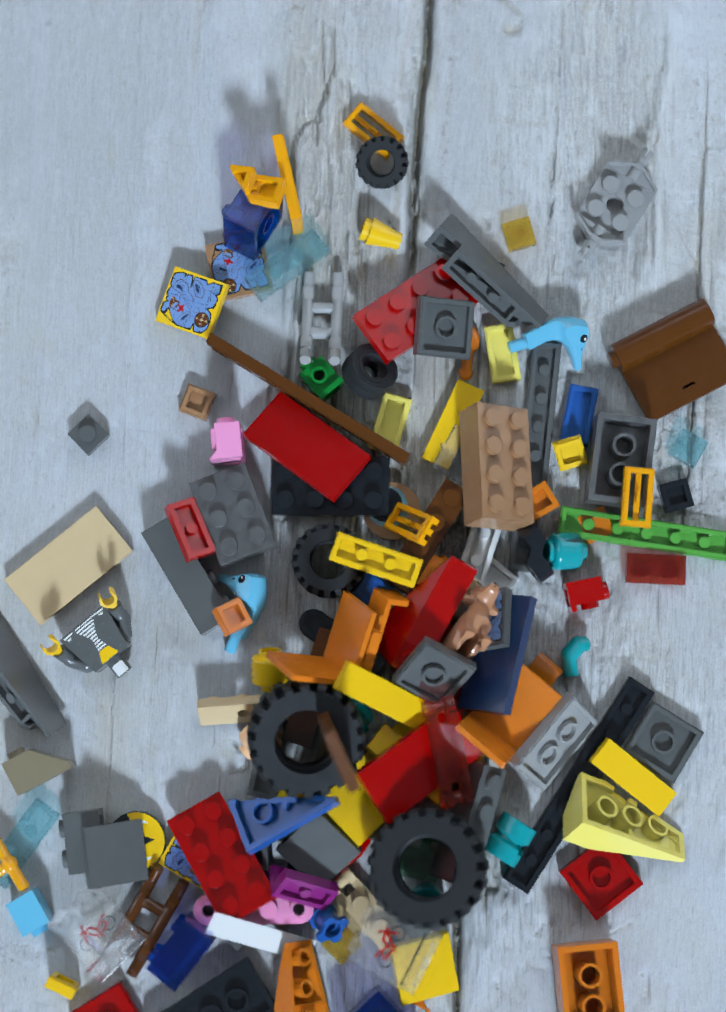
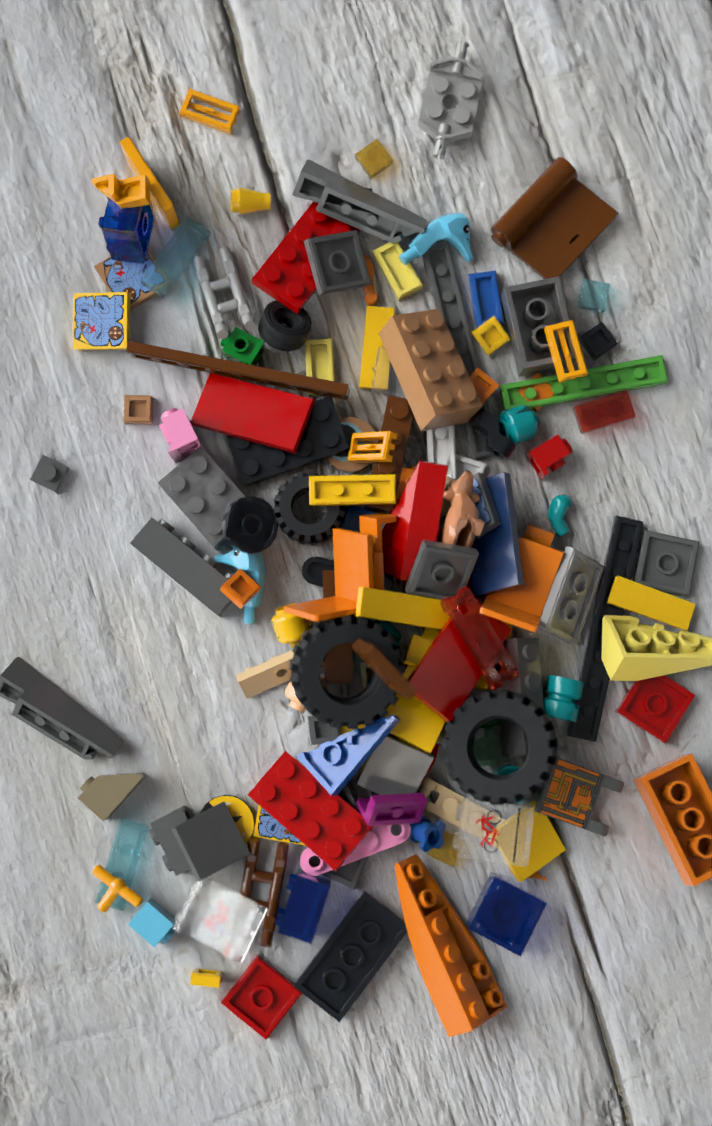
camera: 25 degrees left, 0 degrees up
(68, 565) = (74, 598): tan tile -> none
(97, 640) = (125, 654): dark grey torso -> none
(190, 529) = (173, 523): red plate -> none
(250, 933) = (360, 867): white sticker -> none
(263, 558) = (249, 525): none -> black tile
(364, 165) = (210, 134): black tyre -> none
(485, 939) = (572, 795): none -> flag

